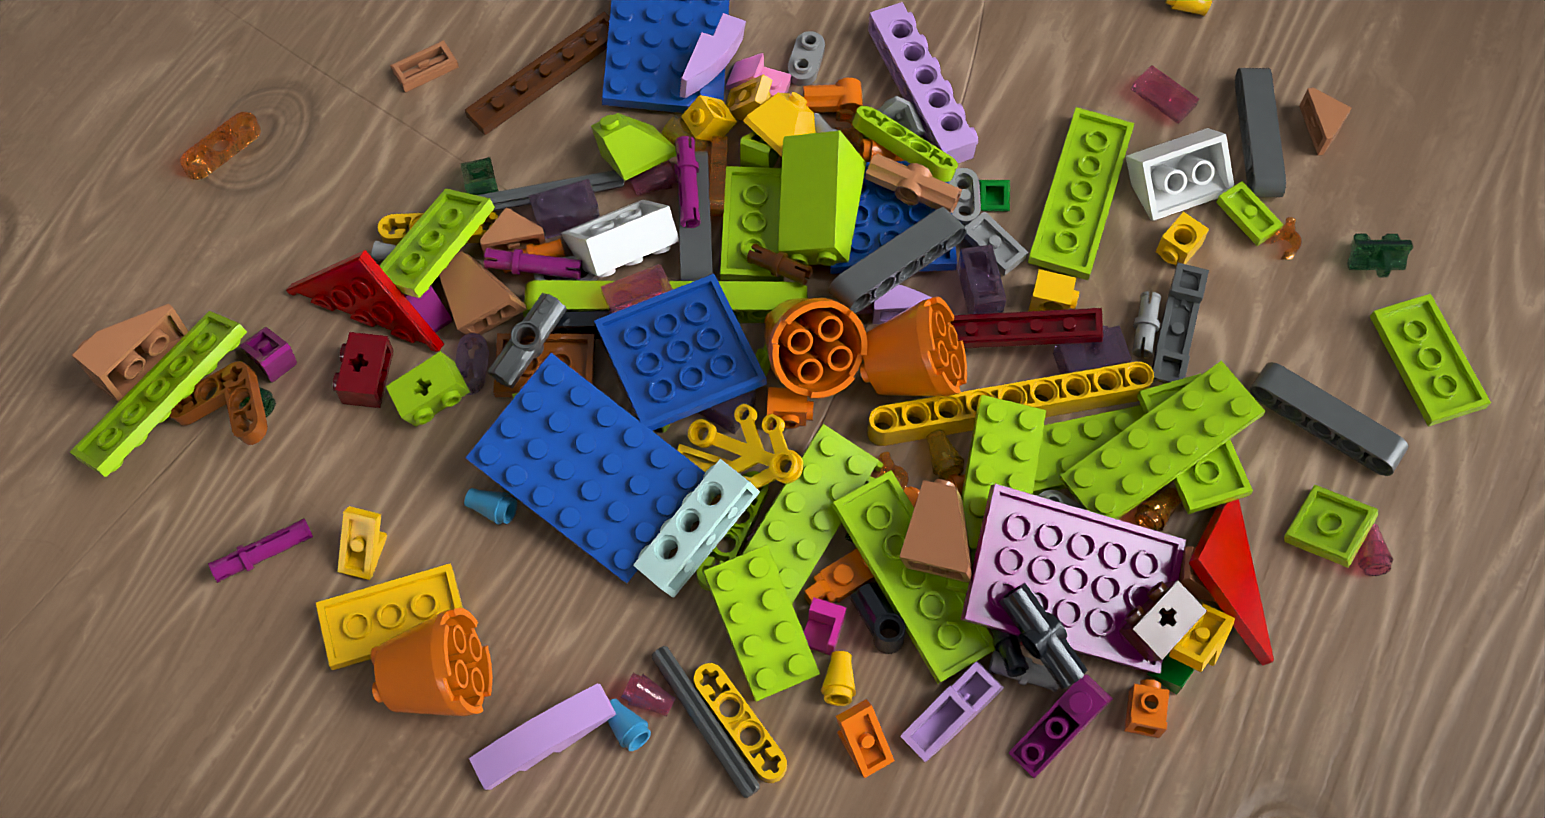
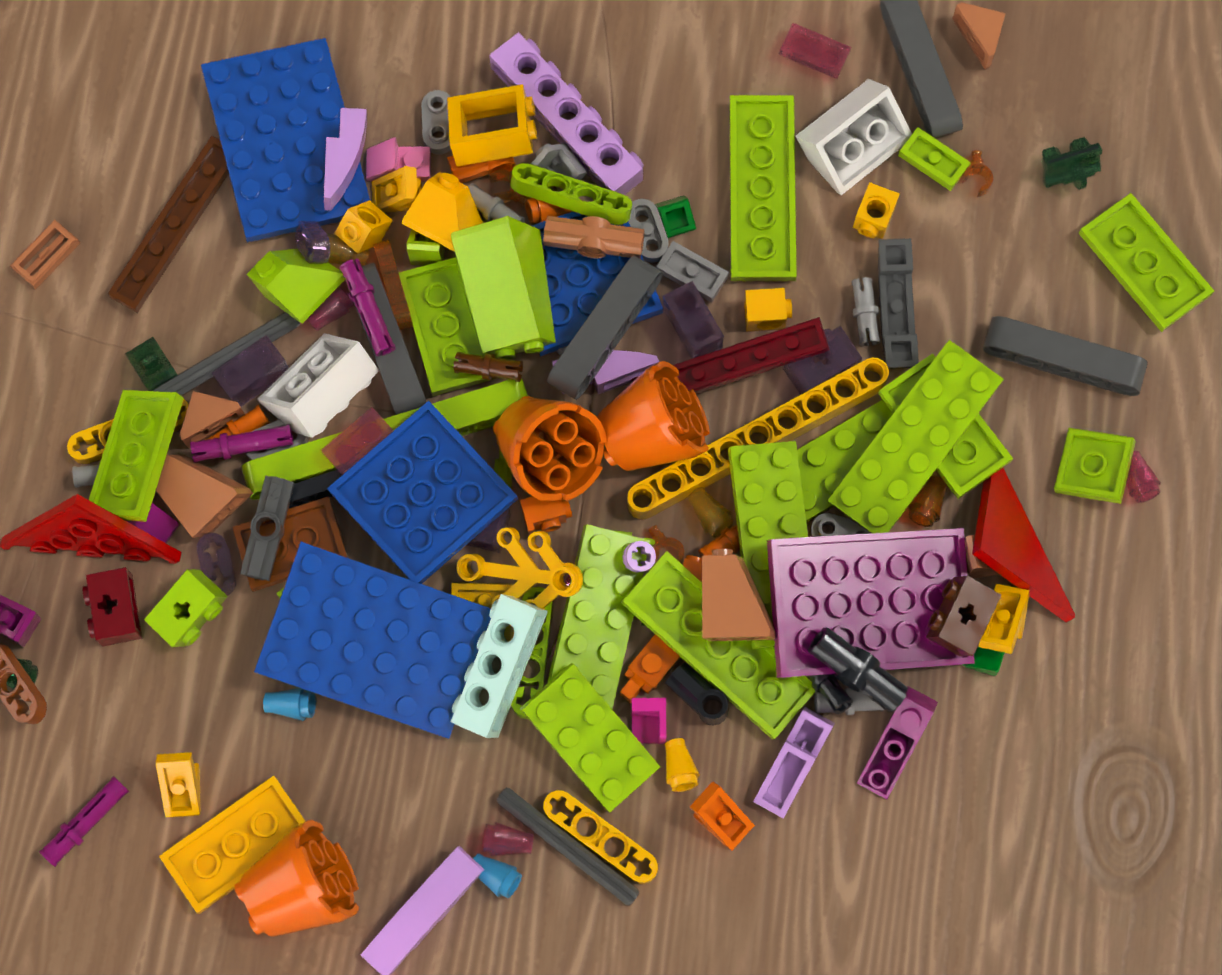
camera: 15 degrees left, 10 degrees up
(659, 117) = (312, 242): none -> clear purple beam
(851, 80) = (494, 144): none -> yellow window
(853, 471) = (631, 564): none -> lavender bush
(1141, 718) = (967, 712): orange brick -> none

